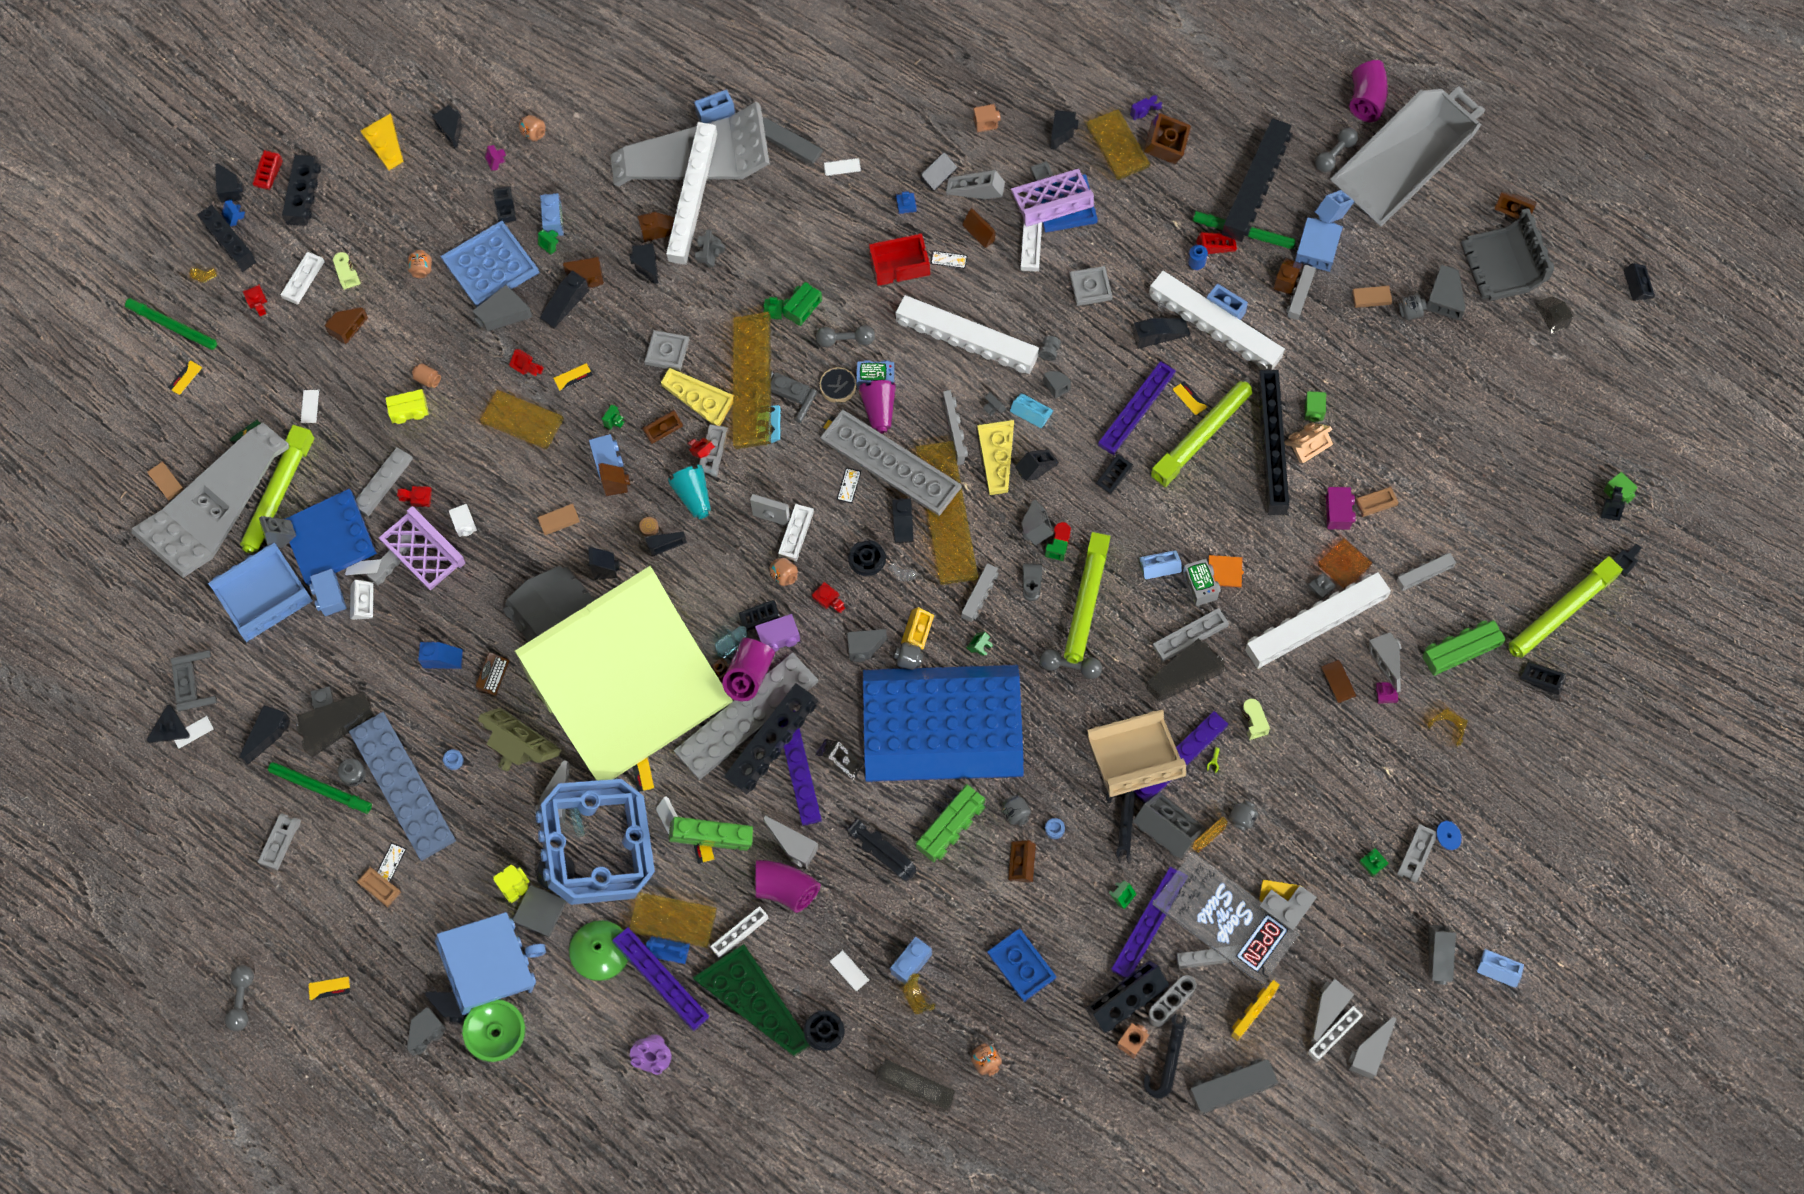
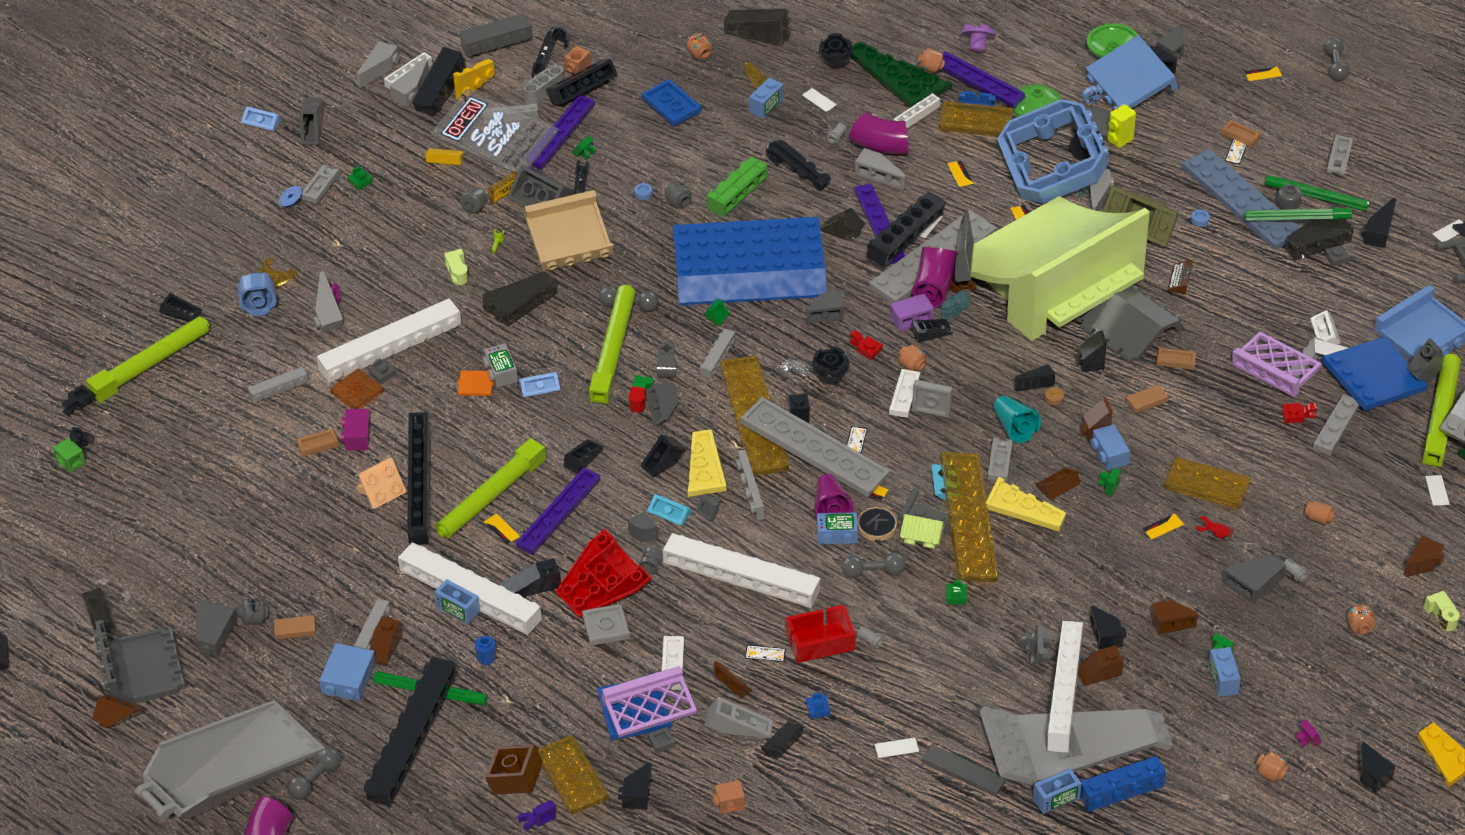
camera: 175 degrees right, 20 degrees down
(313, 728) = (1298, 214): none -> green axle
(328, 592) = (1358, 326): medium blue brick -> none
(407, 406) = (1331, 484): neon yellow brick -> none
(440, 656) = (1234, 284): blue slope -> none
(462, 315) = (1295, 570): none -> light grey pin
(462, 520) = (1243, 389): white brick -> none
(489, 263) = (1282, 625): medium blue plate -> none
(504, 204) = (1282, 688): black slope -> none
(518, 569) = (1176, 358): none -> medium nougat tile
(565, 298) = (1189, 588): black slope -> none
(659, 116) = (1122, 783): none -> blue brick
(666, 812) = (988, 183): white slope -> none
(667, 350) = (1065, 547): light grey plate -> none
(700, 448) = (1012, 450): red plate -> none
(710, 833) = (951, 160): bright green brick -> none
(713, 1003) = (931, 60): none -> nougat head
(715, 679) = (964, 250): none -> dark grey slope
(797, 366) = (921, 531): none -> yellowish green brick
(802, 303) = (925, 593): green brick -> none
(833, 905) = (834, 135): none -> light grey pin
(854, 264) = (870, 637): none -> light grey pin
(908, 656) = (784, 299): dark grey head -> none
(918, 627) = (777, 326): yellow slope -> none
(1022, 861) = (672, 168): reddish brown slope -> none
(1091, 329) = (601, 576): none -> red wedge
(1184, 637) = (513, 327): light grey plate -> none
(1189, 750) = (509, 255): dark purple plate -> none
(1206, 238) = (472, 678): red slope -> none
(1289, 911) = (441, 138): light grey plate -> none
(1294, 1004) = (439, 82): none -> black wedge
(1315, 406) = (370, 516): bright green brick -> none
(1334, 206) = (325, 697): medium blue brick -> none
(1338, 681) = (376, 297): reddish brown slope -> none
(1463, 647) = (252, 324): bright green brick -> none
(1464, 679) = (256, 293): none -> medium blue brick

